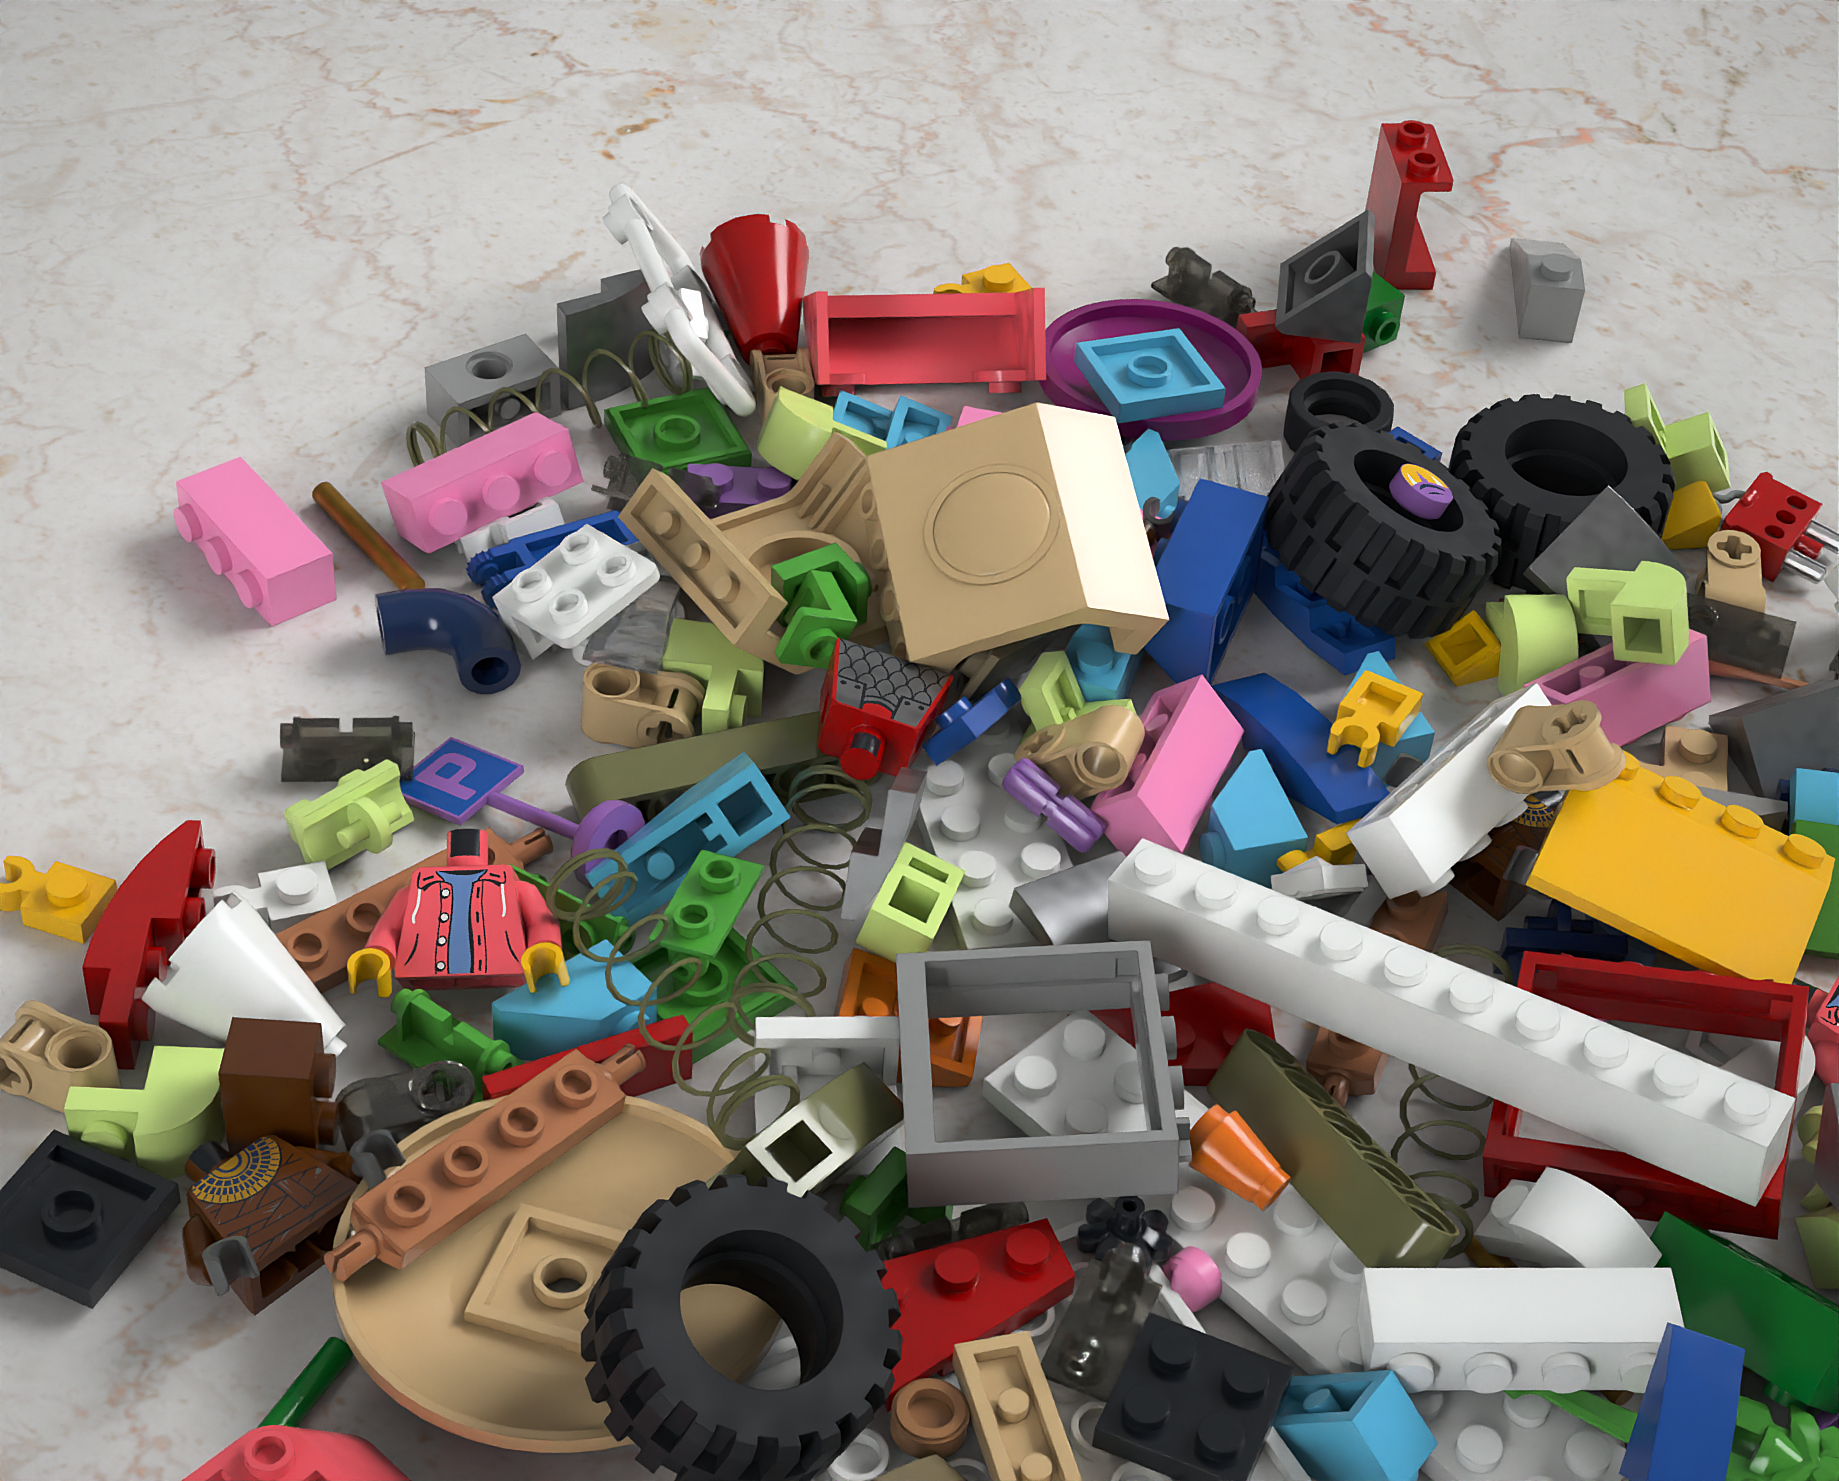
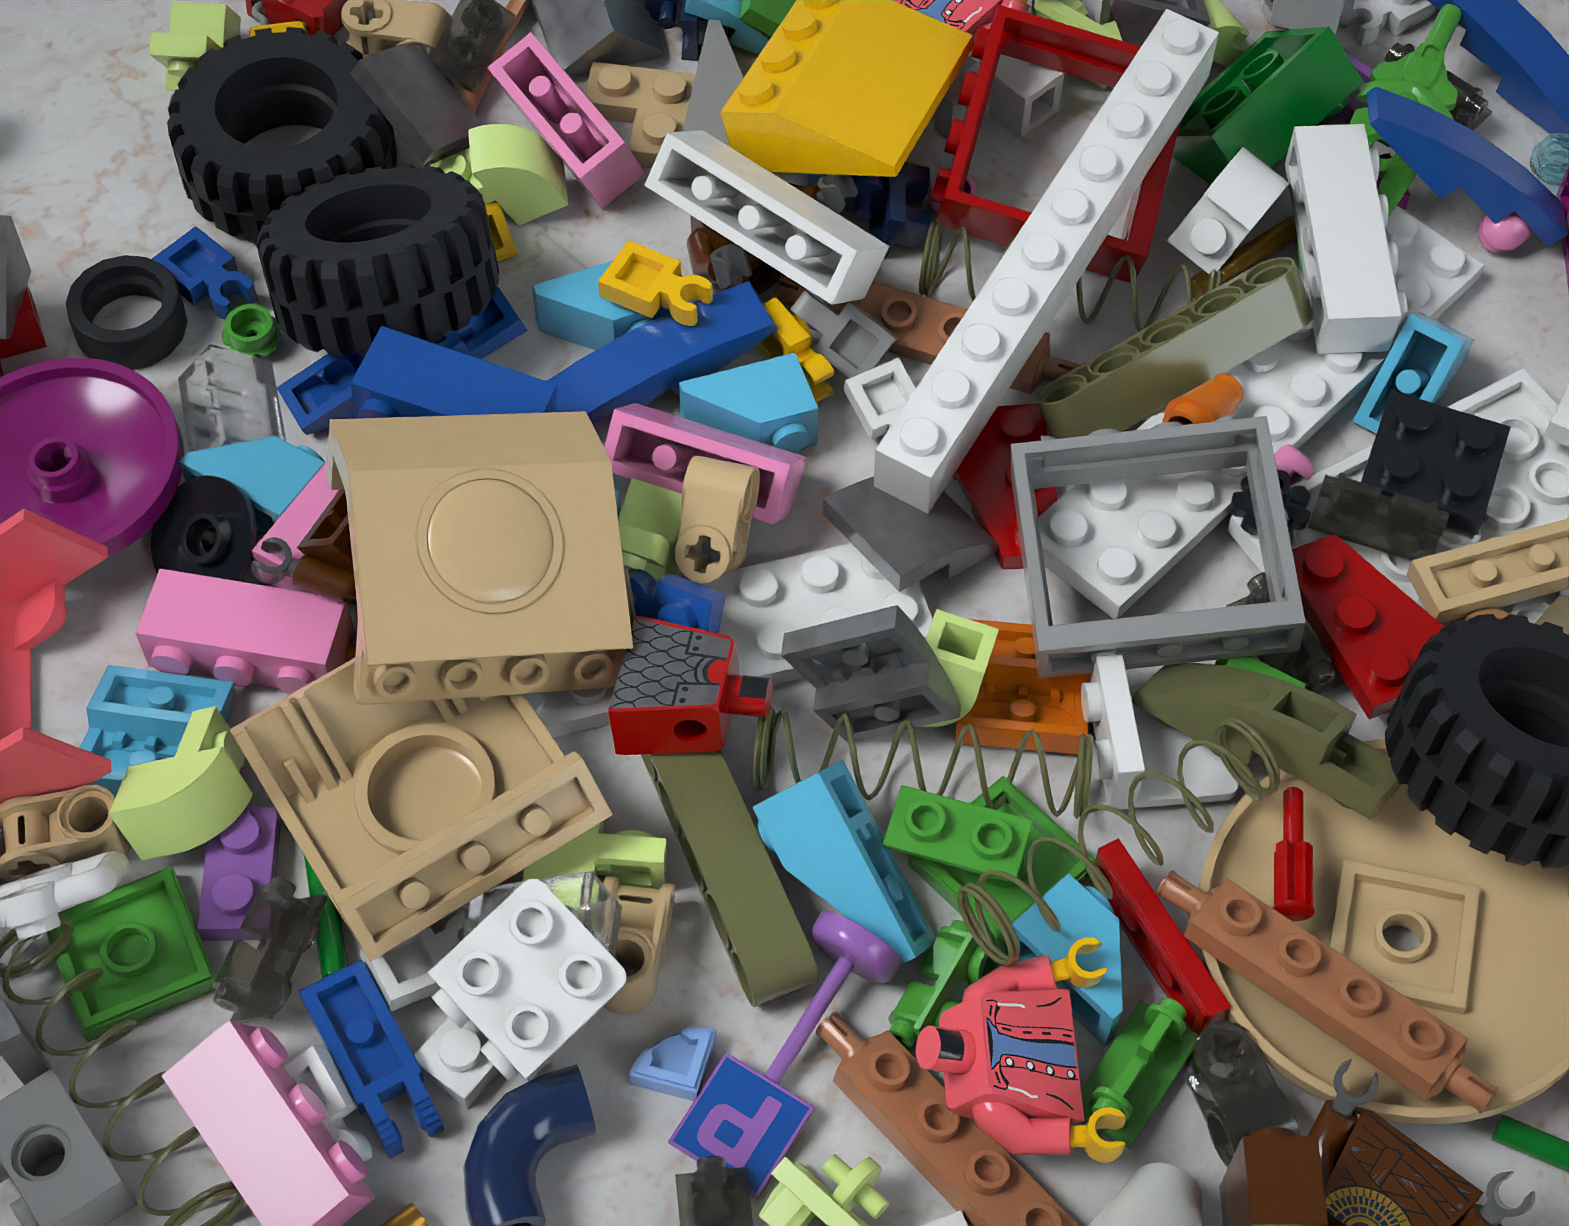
camera: 90 degrees left, 15 degrees up
(524, 743) = (676, 1063): none -> light blue tile
(637, 1156) = (1293, 862): none -> red axle
(815, 621) = (565, 727): bright green bracket -> none
(849, 575) = (486, 732): bright green bracket -> none
(1065, 814) = (768, 551): medium lavender piece -> none
(1149, 375) = (101, 451): medium azure tile -> none
(1320, 880) = (860, 343): white tile -> none
(1420, 491) = (375, 201): medium lavender tile -> none
(1555, 750) = (763, 130): tan piece -> none
(1637, 608) = (510, 59): yellowish green brick -> none

